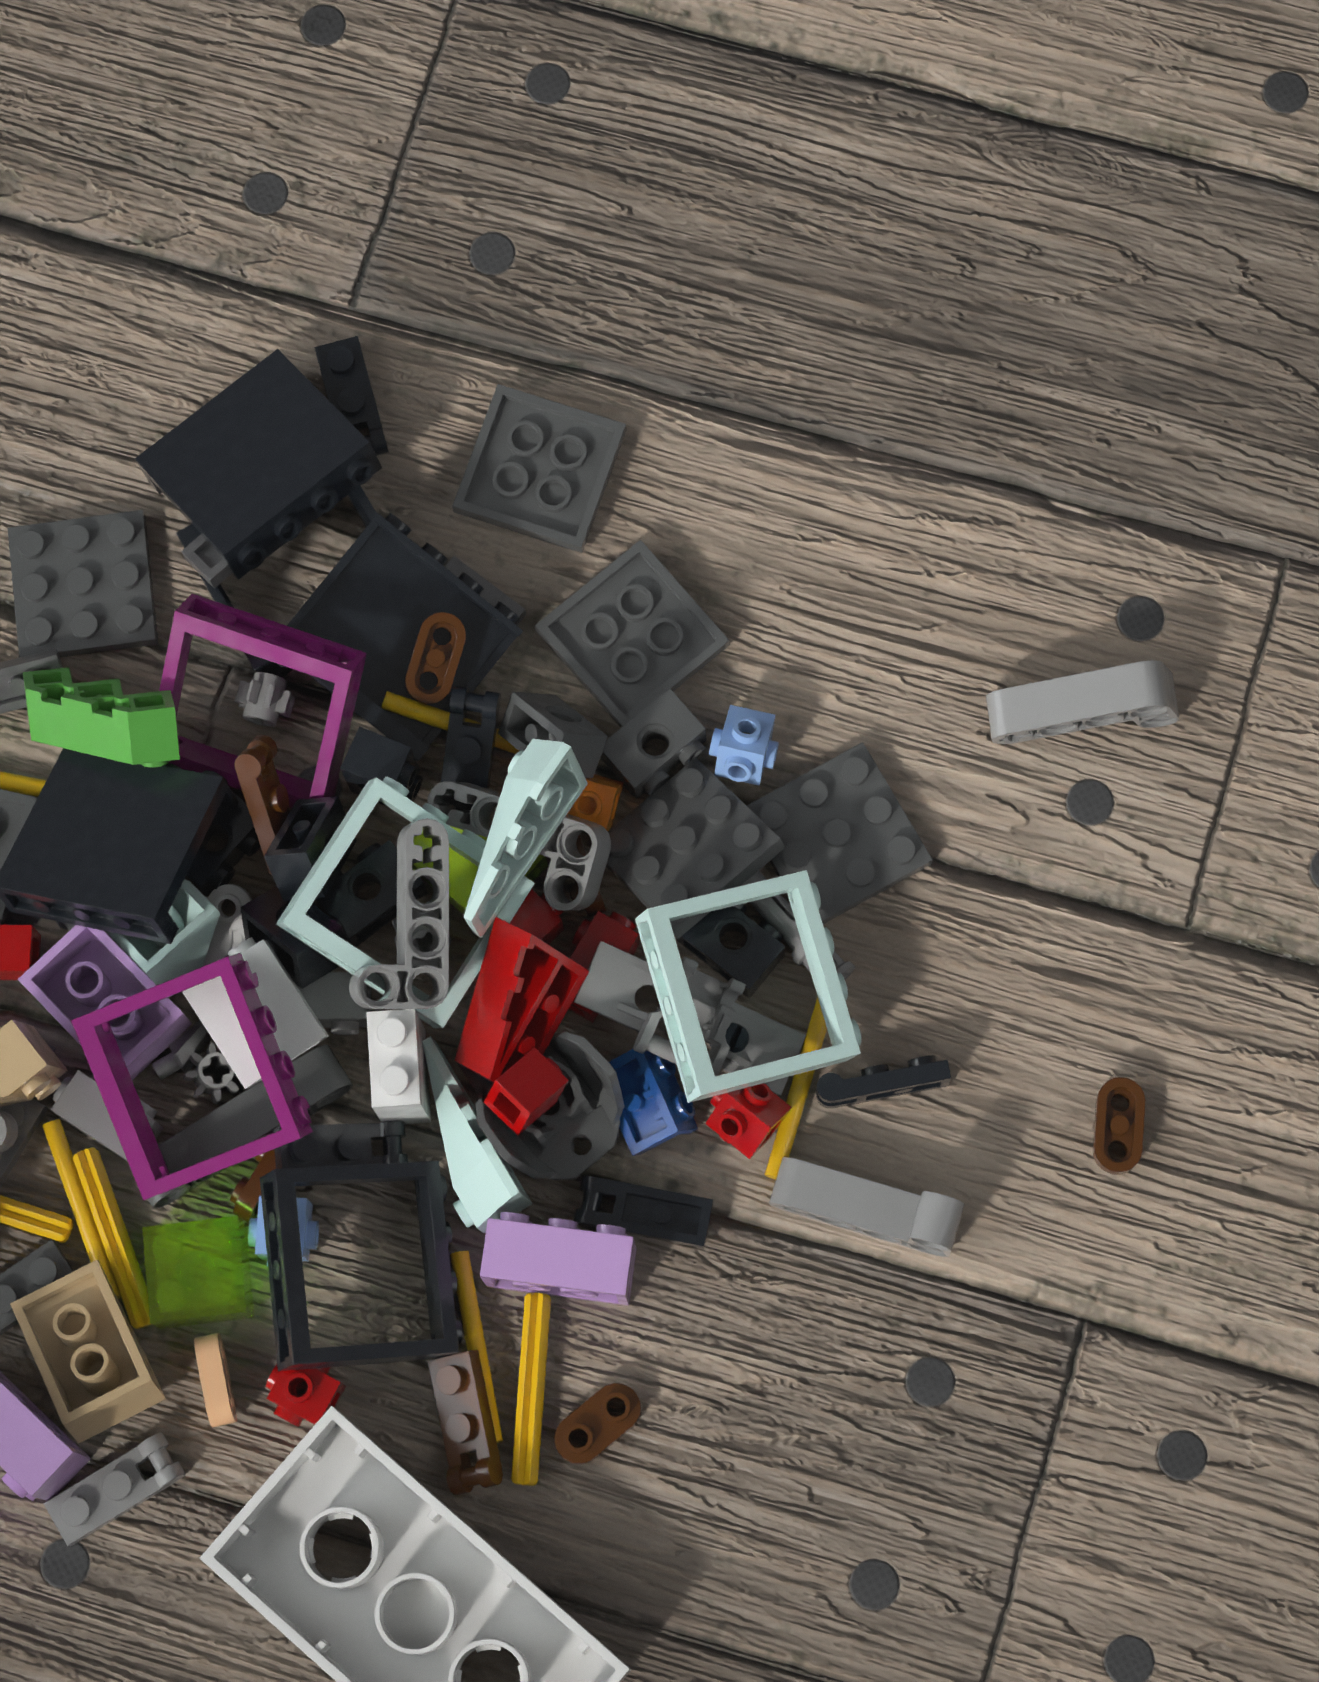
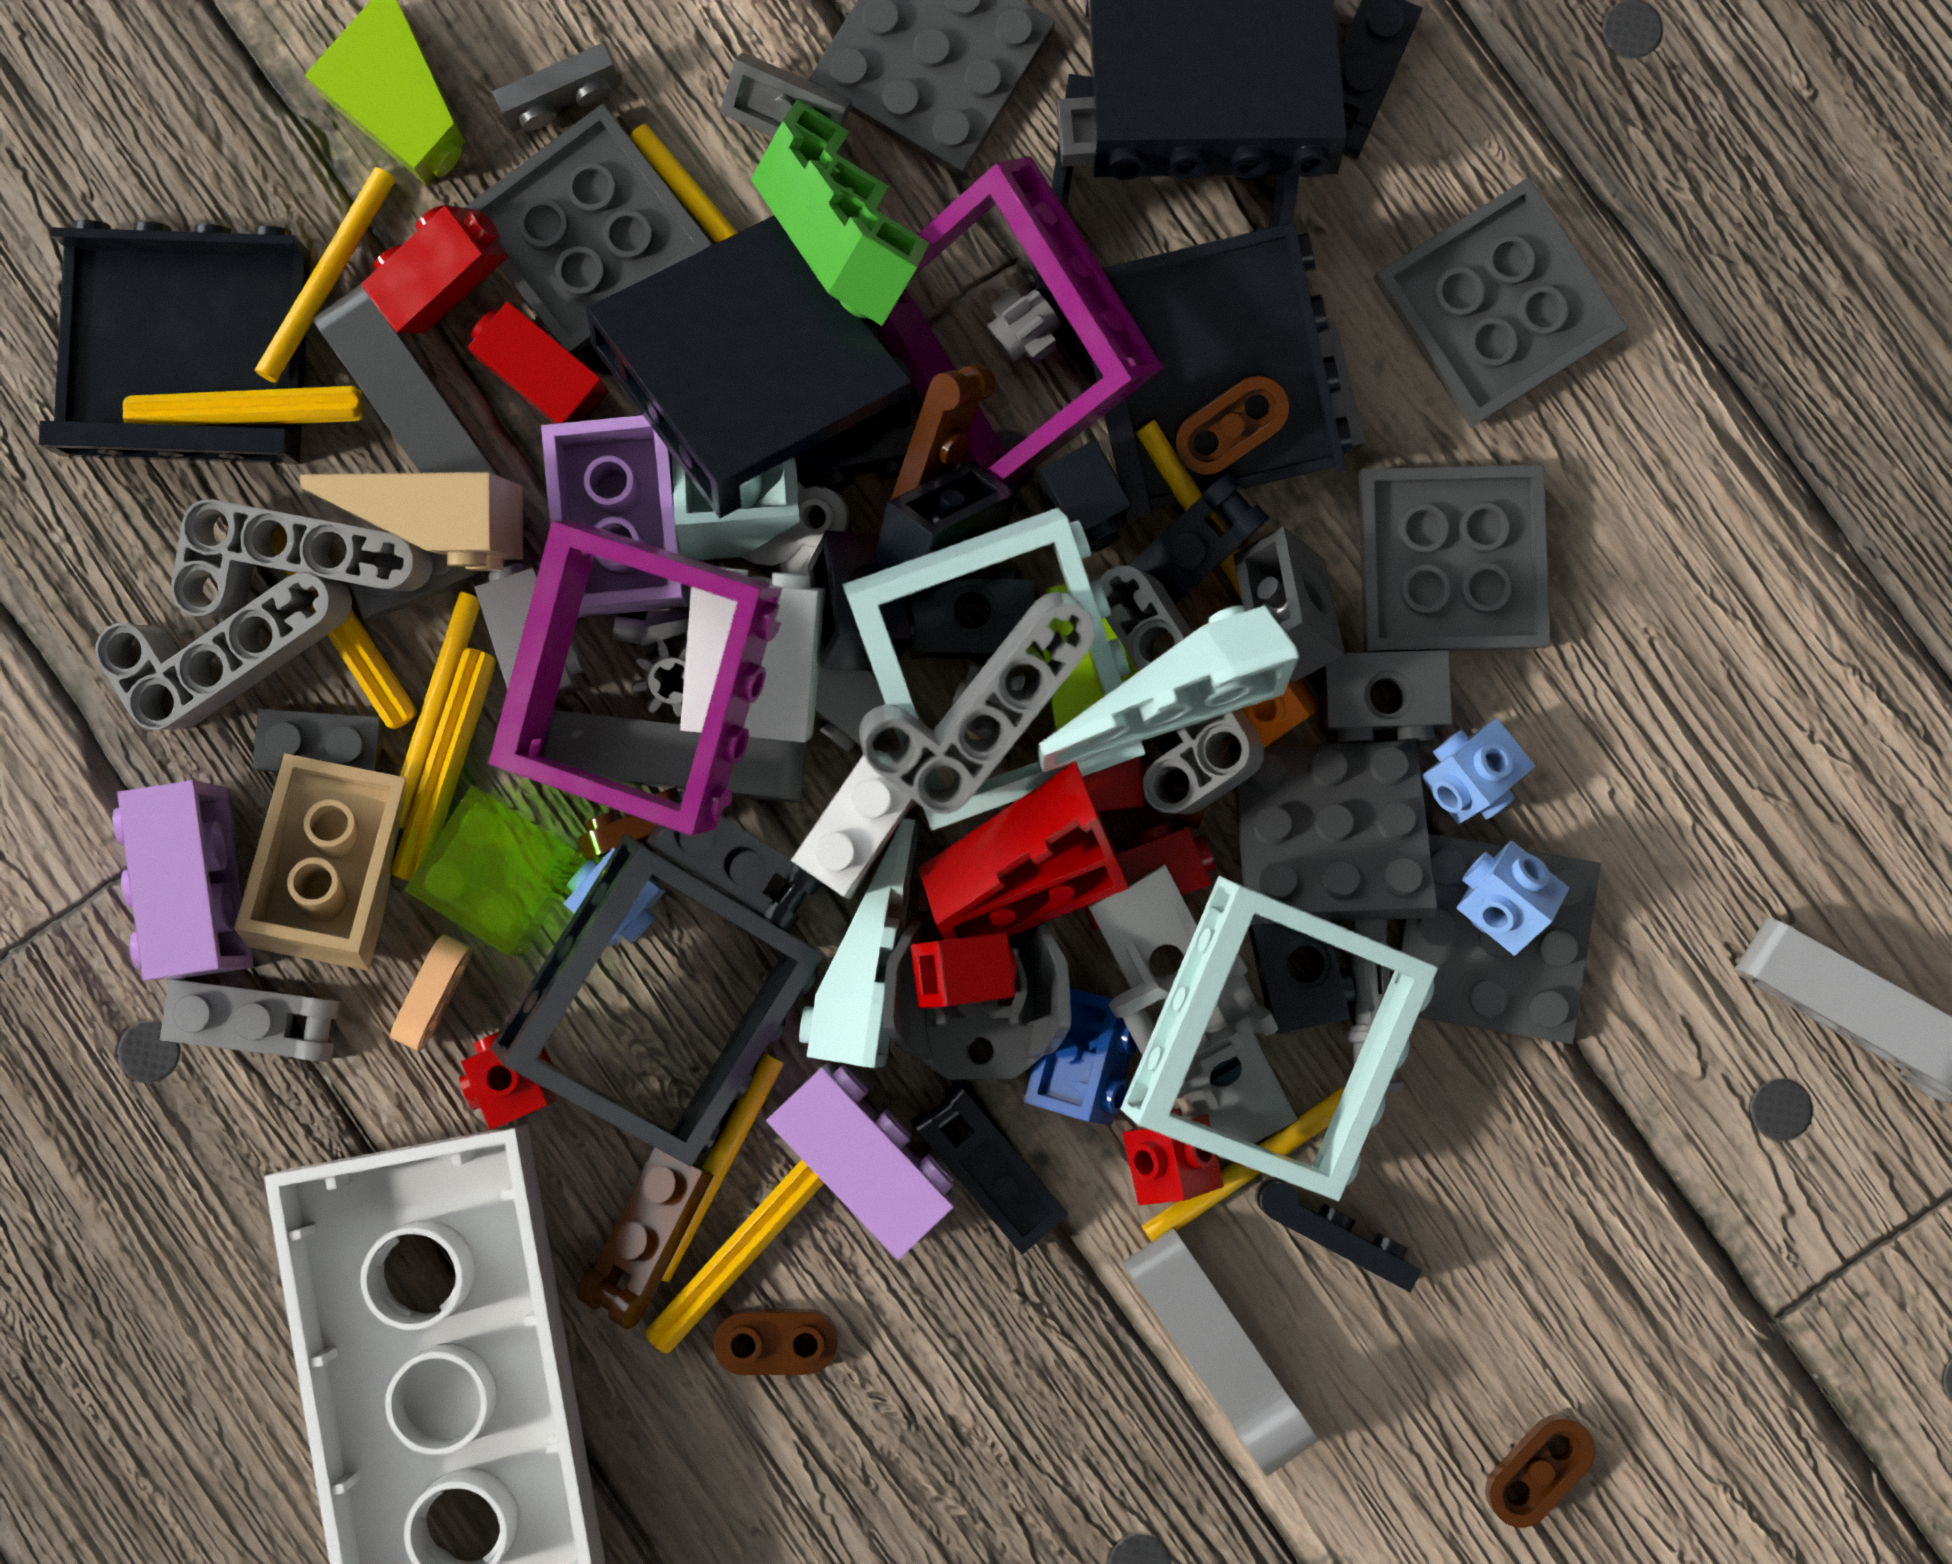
camera: 30 degrees right, 10 degrees up
(819, 798) = (1511, 896): none -> light blue brick

